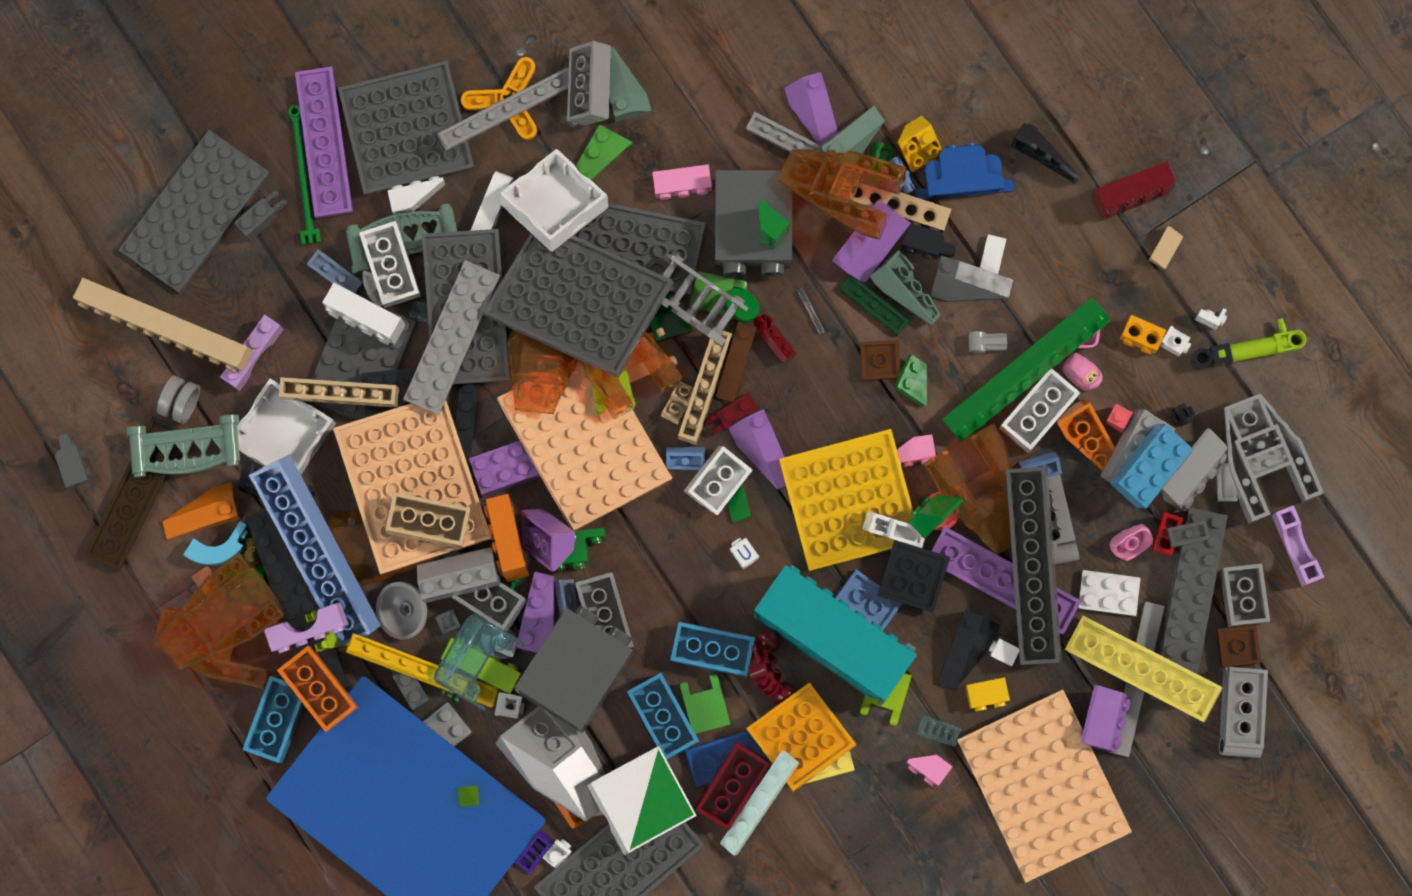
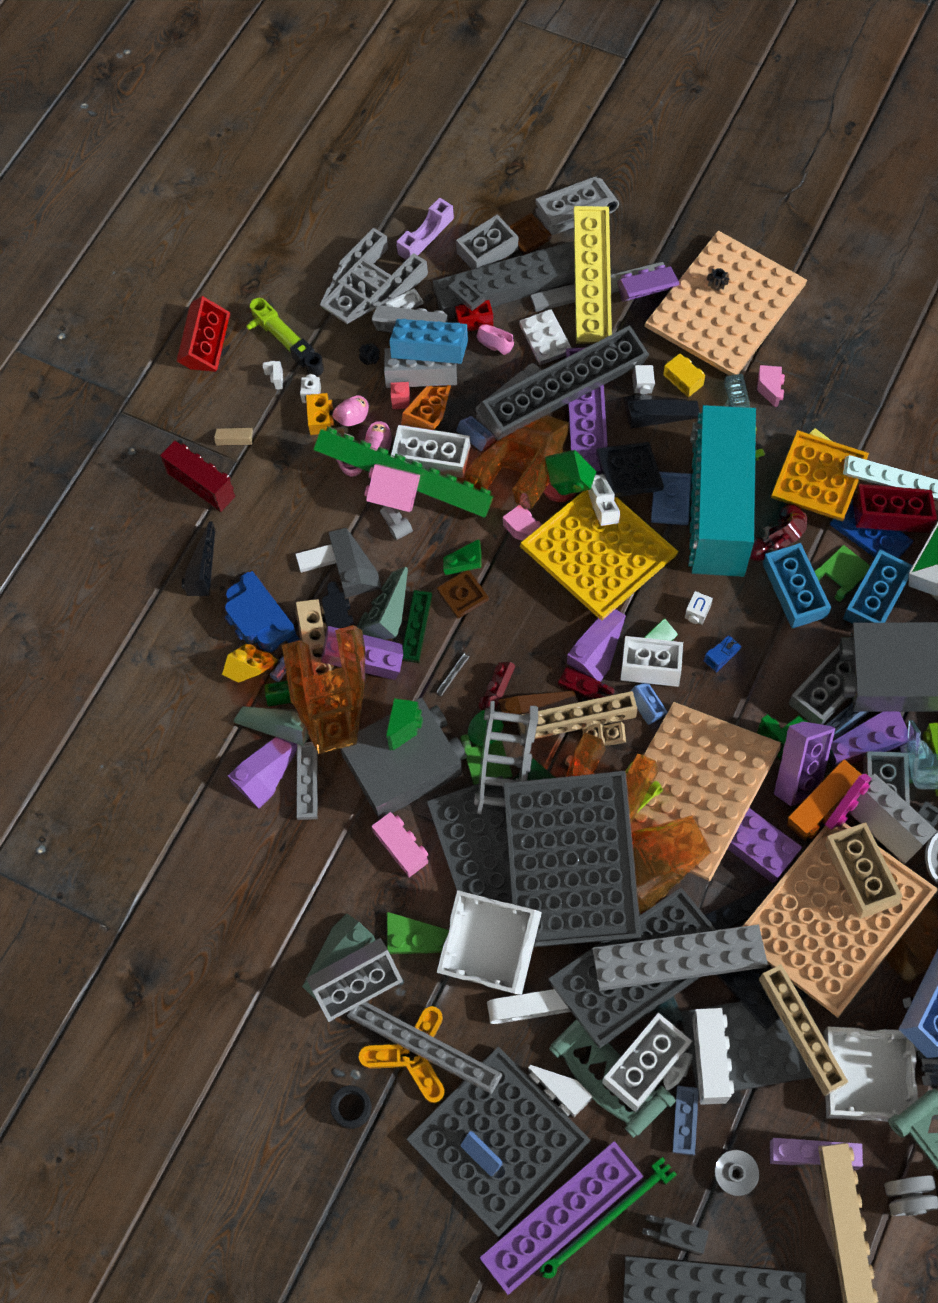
camera: 120 degrees left, 15 degrees down
(271, 278) = (745, 1165): none -> light grey dish
(401, 108) = (481, 1153): none -> medium blue slope
(487, 545) = (849, 802): none -> dark pink plate
(492, 19) = (343, 1091): none -> black tyre
(691, 547) = (722, 653): none -> blue leg
(1013, 348) = (392, 487): none -> bright pink brick
(1071, 790) = (717, 279): none -> black gear
(1126, 363) = (351, 411): none -> bright pink piece
(1294, 274) = (203, 335): none -> red slope

